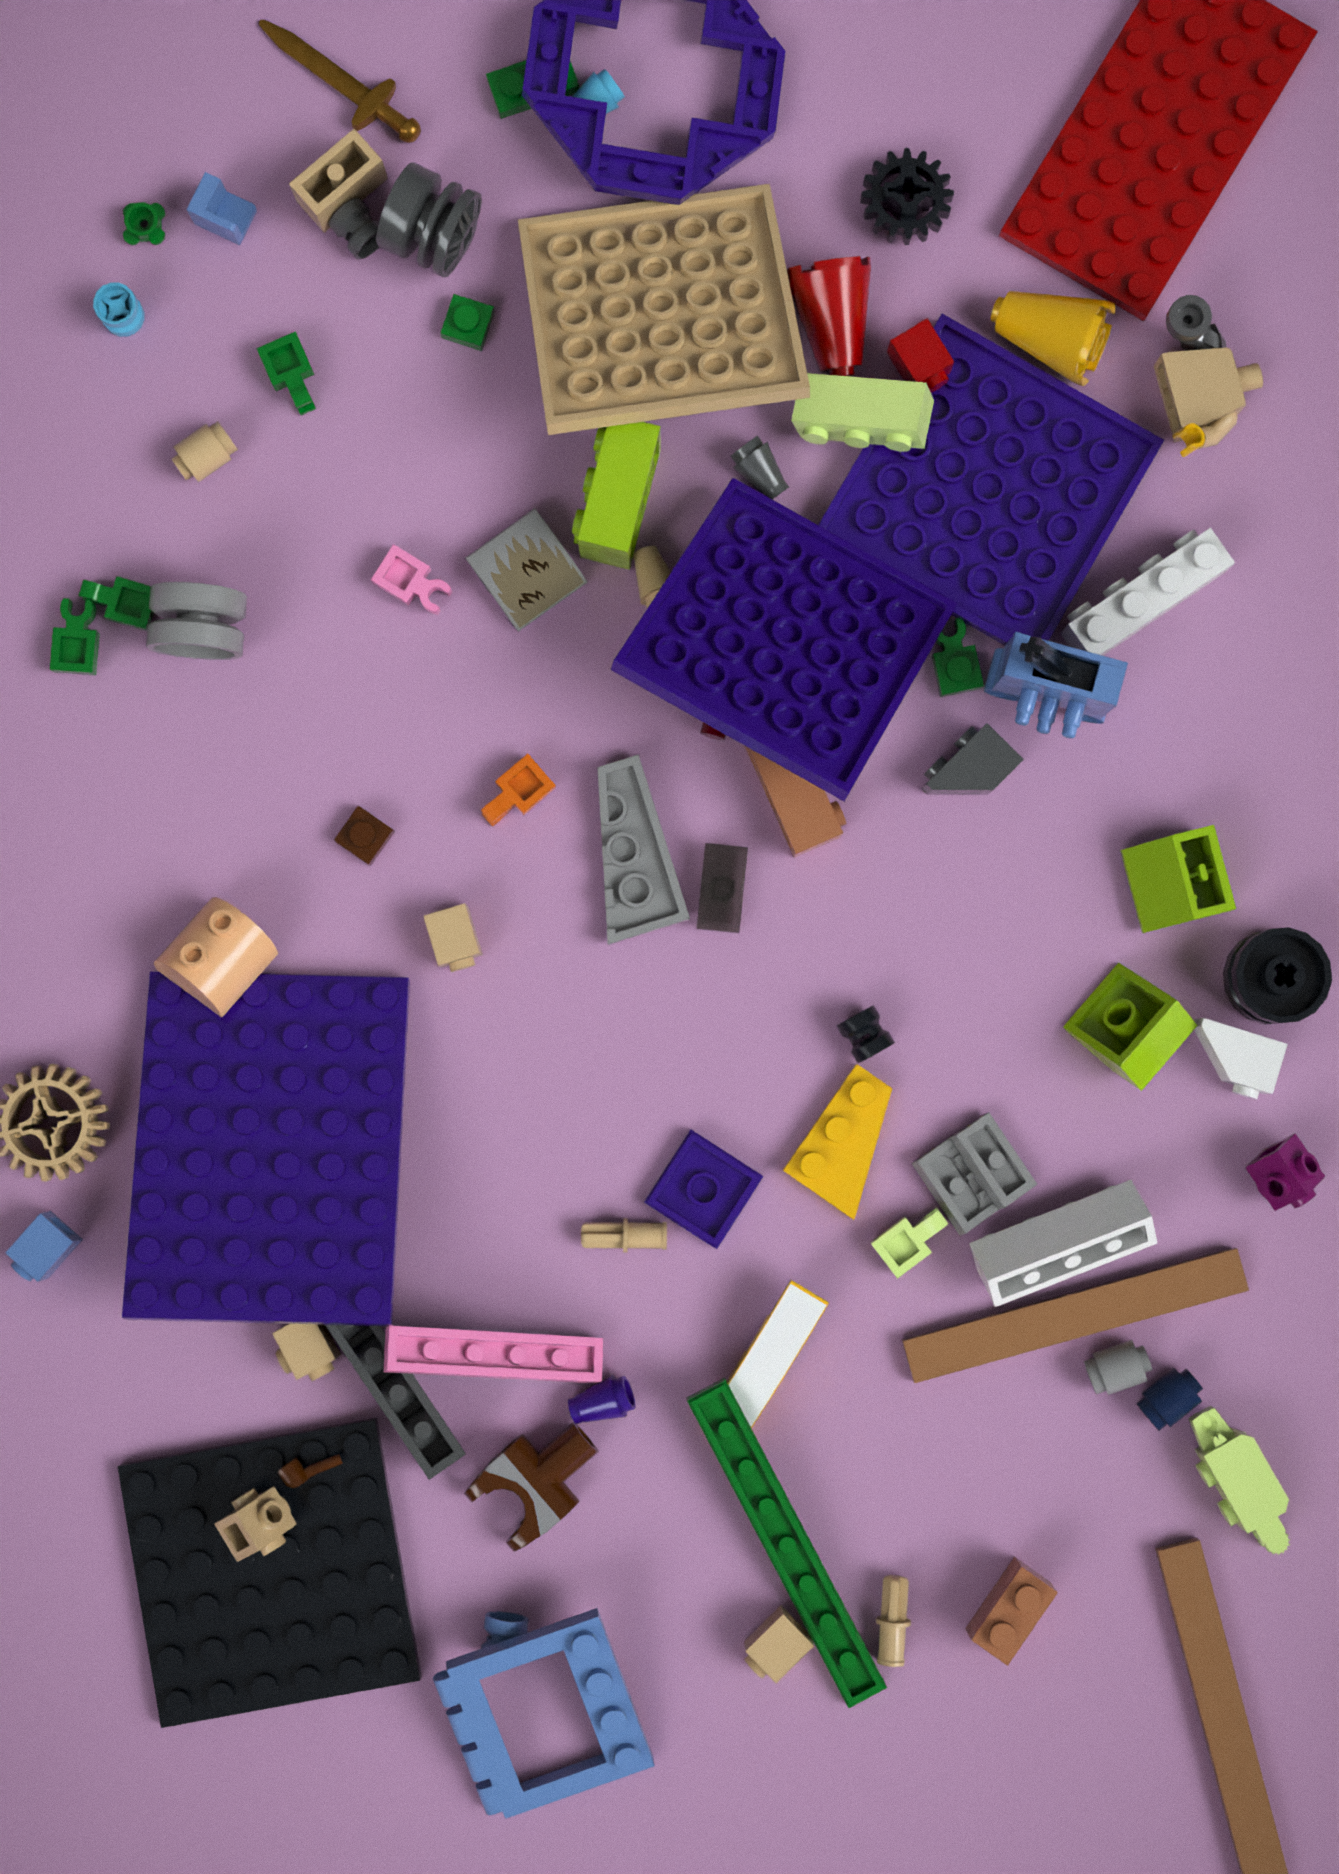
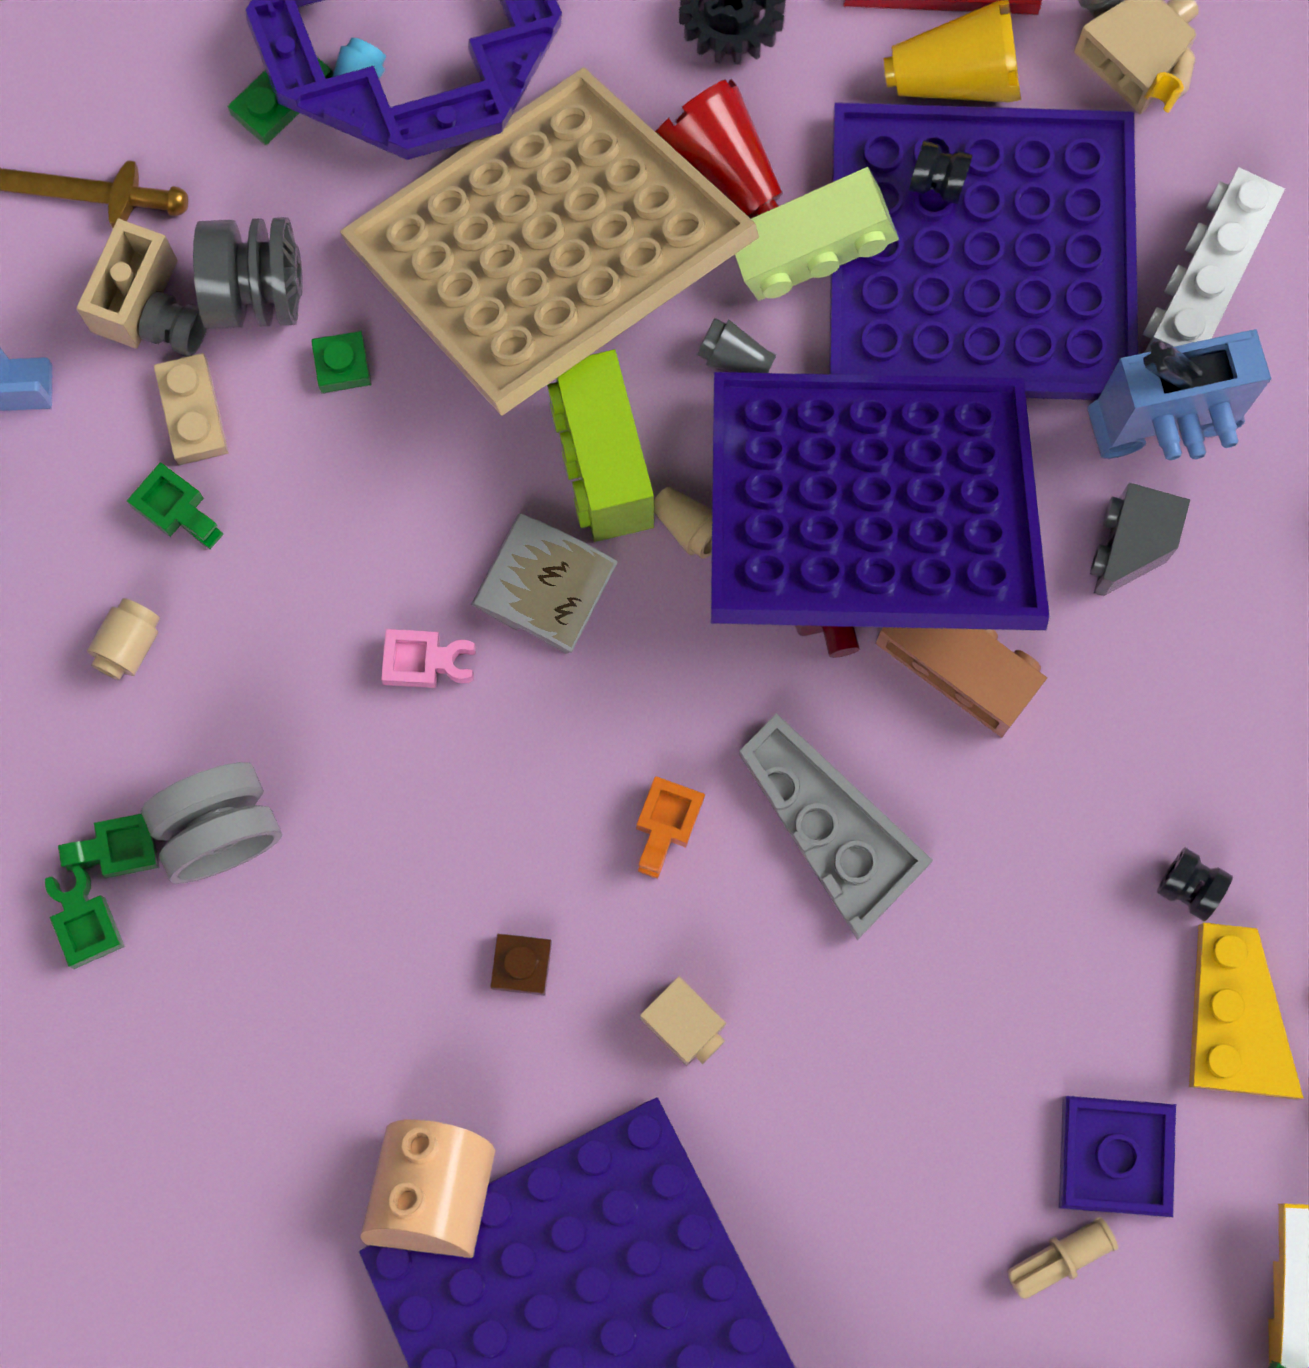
camera: 30 degrees left, 10 degrees down
(339, 300) = (191, 409): none -> tan plate
(722, 888) = (947, 810): clear smoke plate -> none
(921, 356) = (841, 147): red brick -> none
(956, 666) = (1057, 446): green plate -> none
(987, 415) = (940, 172): none -> black wheel

